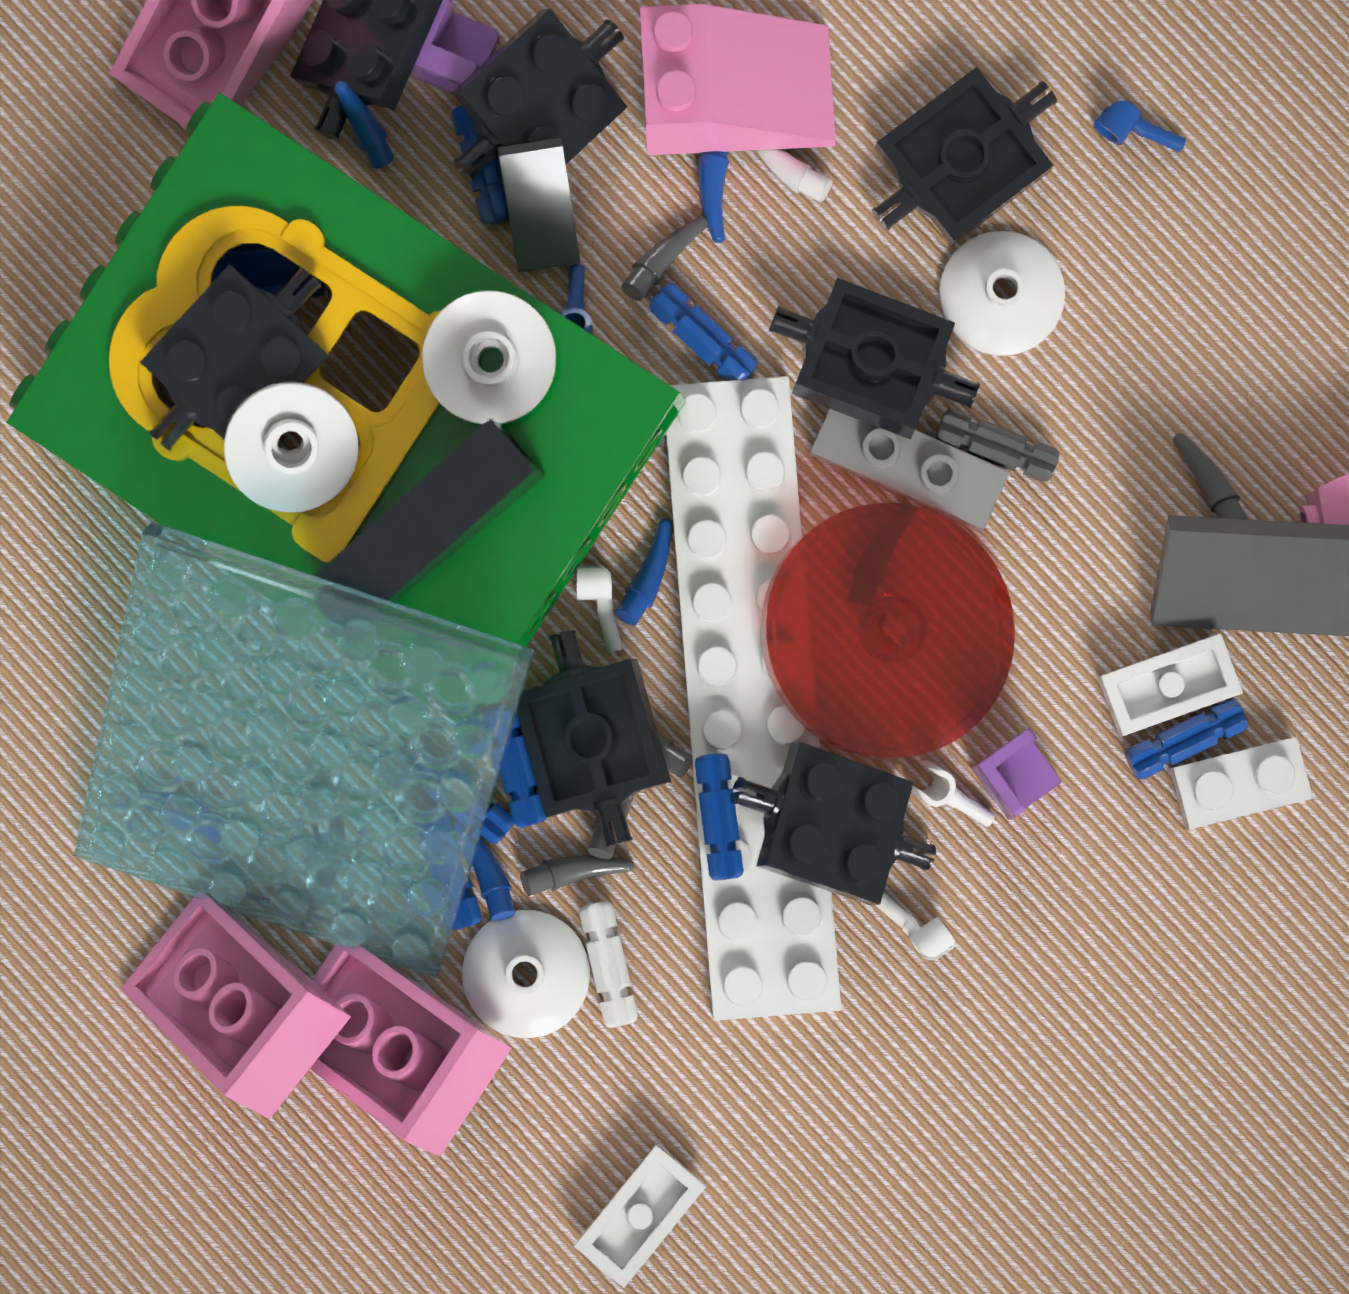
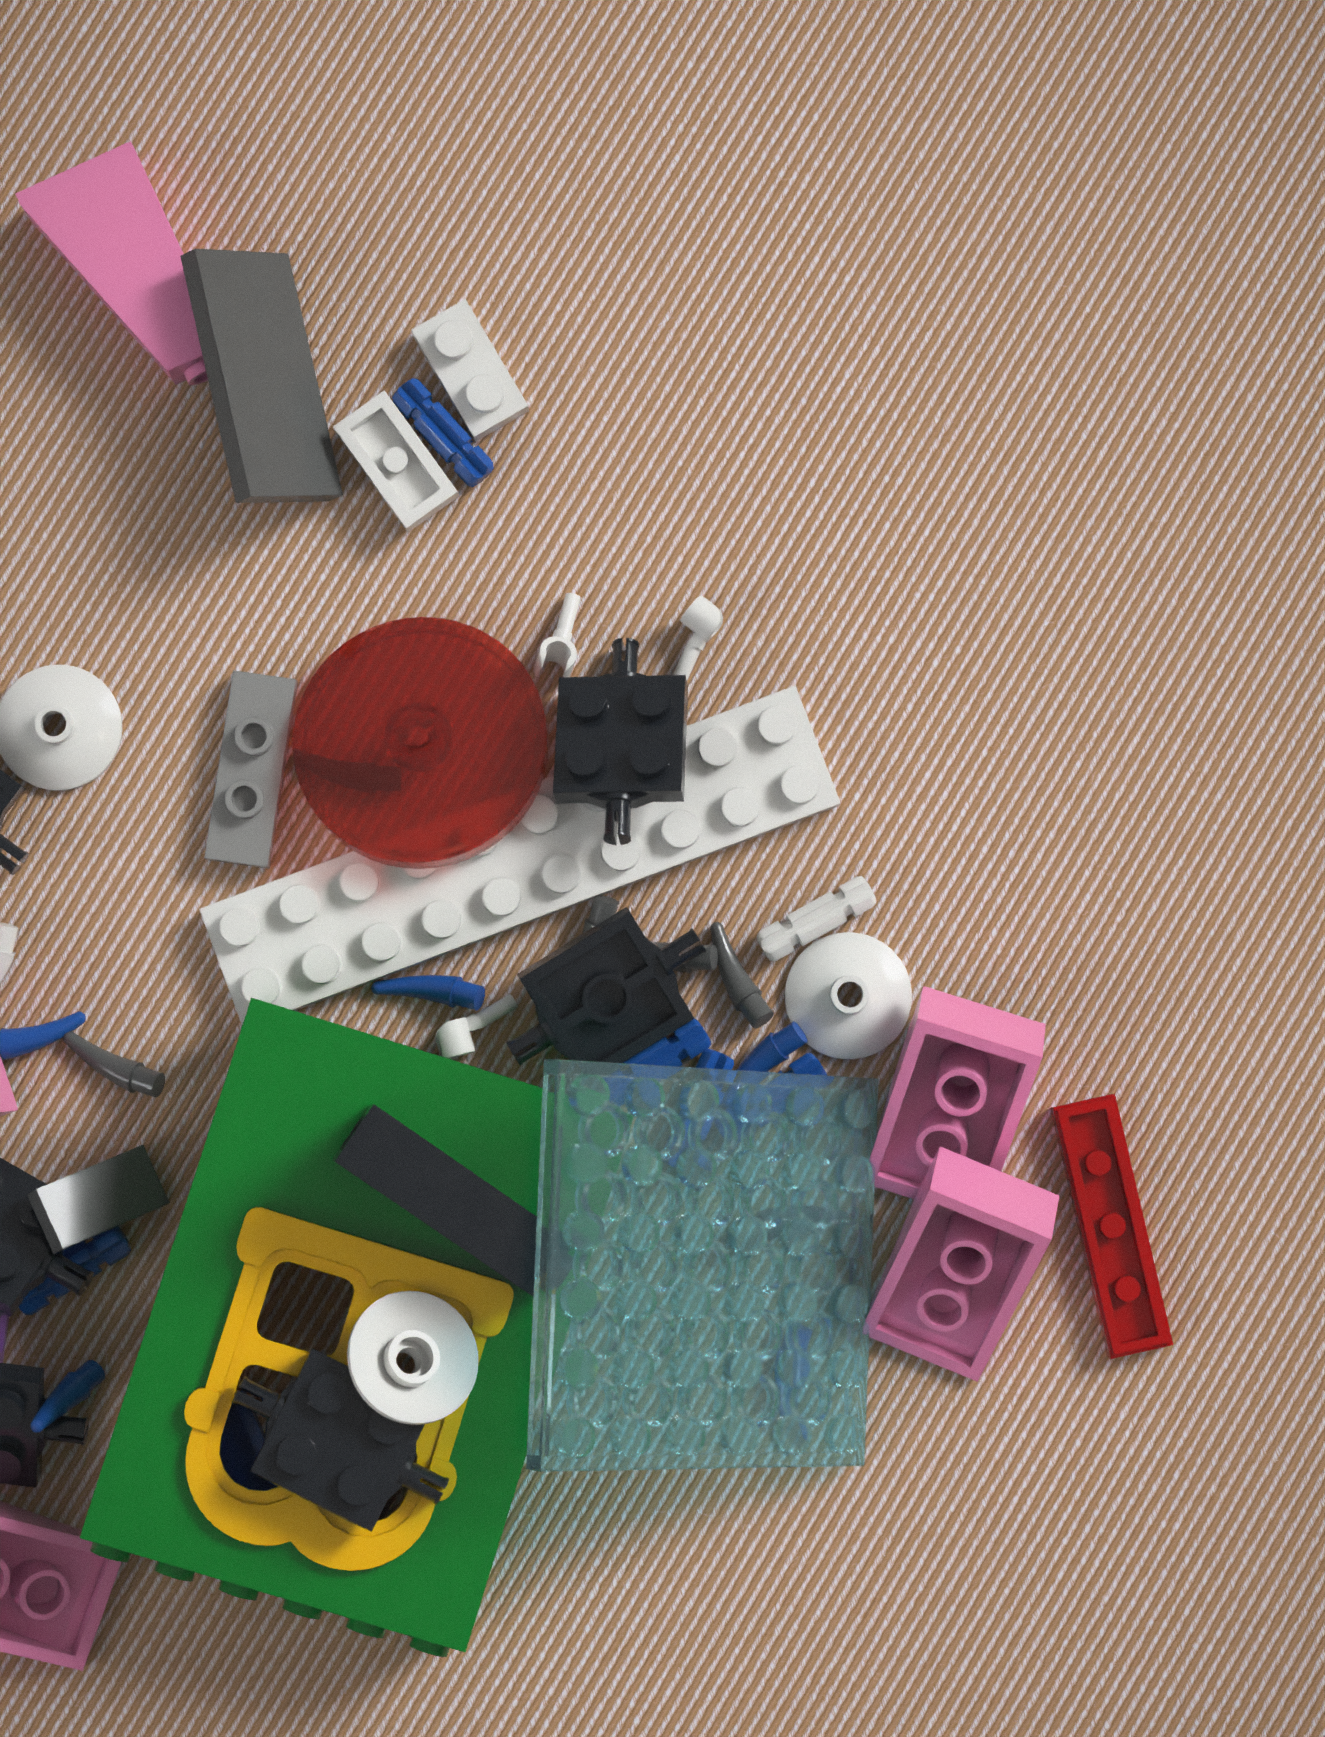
camera: 110 degrees left, 0 degrees up
(229, 1163) = (1111, 1226): none -> red tile
(464, 333) = (262, 1225): white dish -> none
(575, 307) = (188, 1136): blue hand -> none
(640, 1215) = (1044, 819): white plate -> none
(702, 333) = (180, 1004): blue axle -> none
(719, 817) = (646, 851): blue axle -> none
(873, 358) = (159, 830): black plate -> none
(997, 445) = (209, 689): dark grey axle -> none
(1016, 774) = (523, 583): medium lavender panel -> none
(1217, 489) = (193, 468): dark grey helmet -> none

